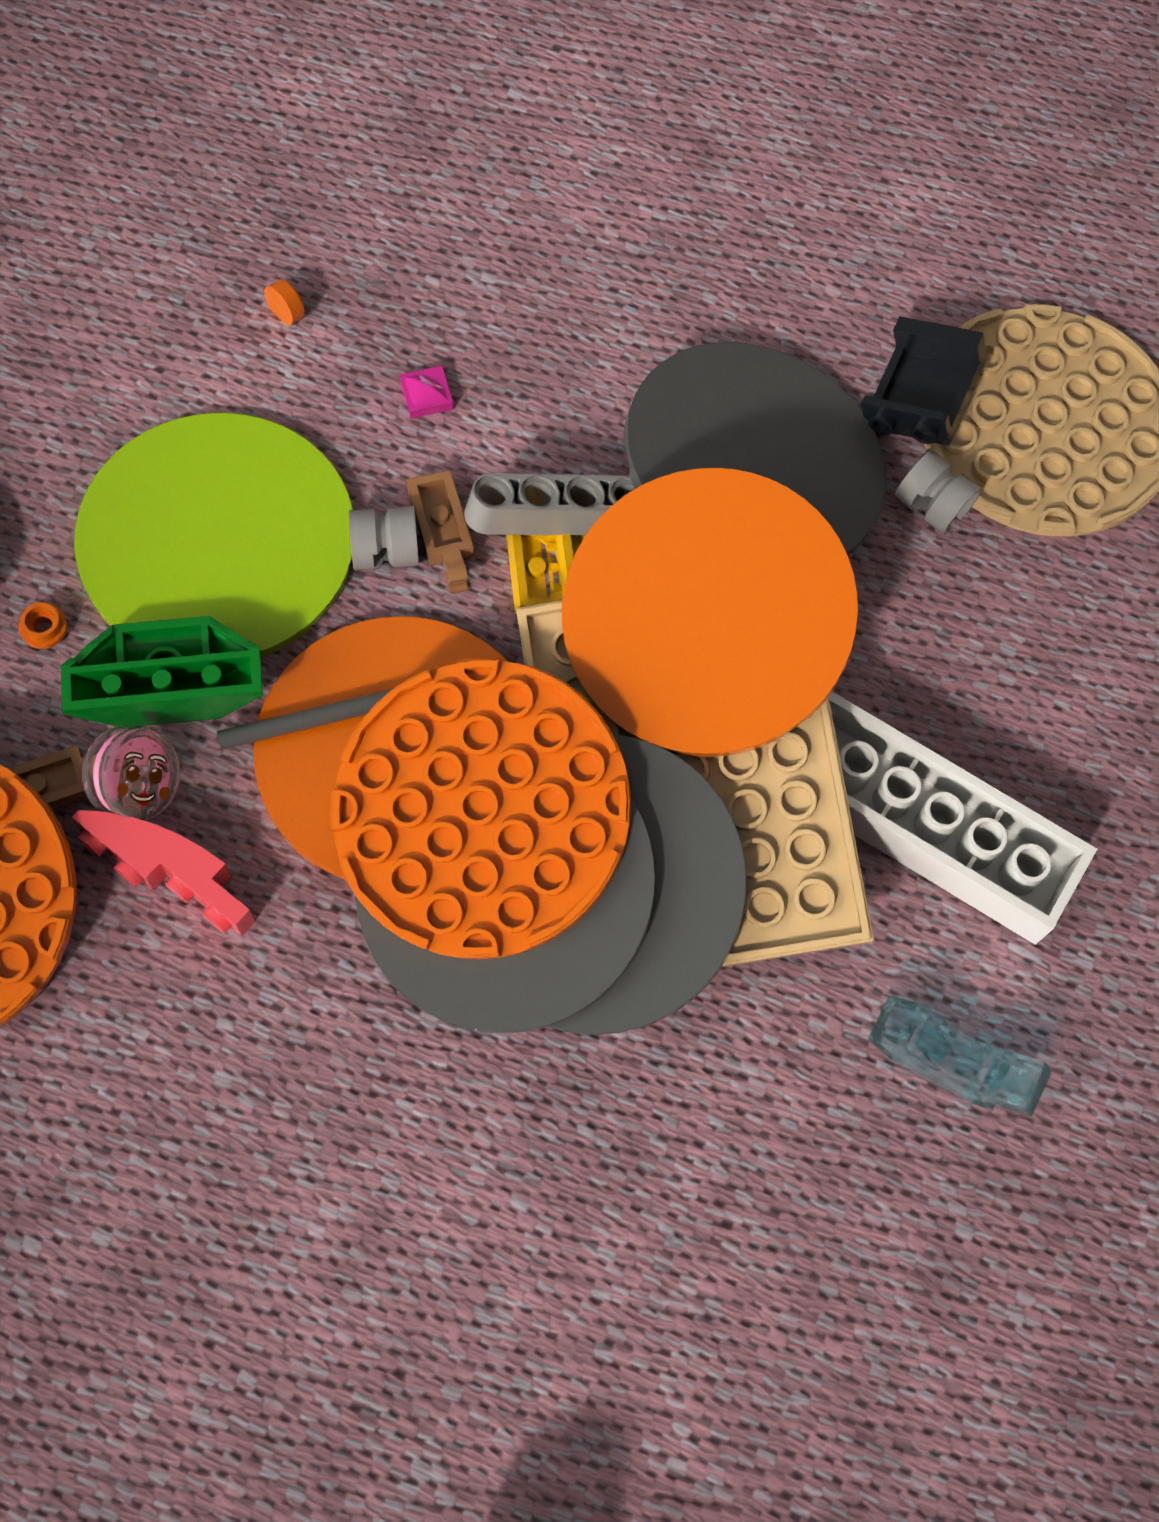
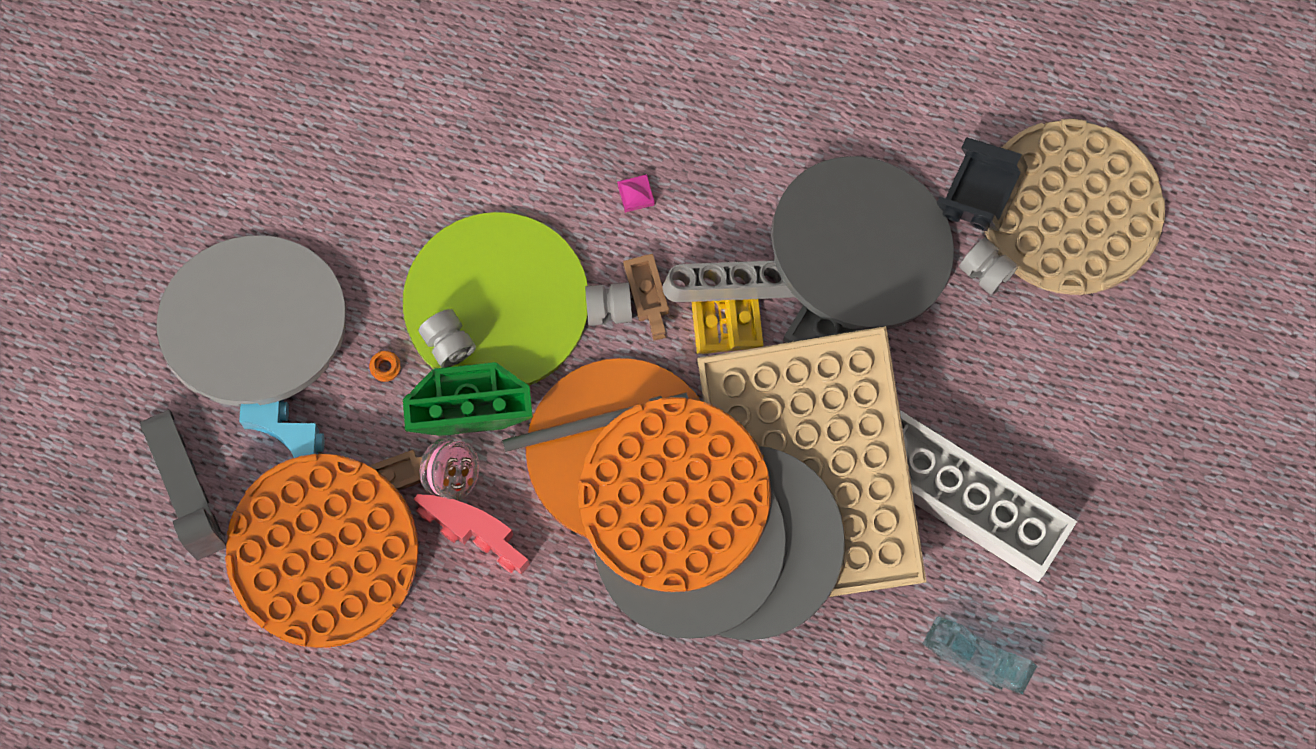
camera: 10 degrees right, 5 degrees up
(135, 580) = (444, 334): none -> light grey wheel
(284, 302) = (537, 128): orange tile -> none
(710, 611) = (823, 364): orange tile -> none

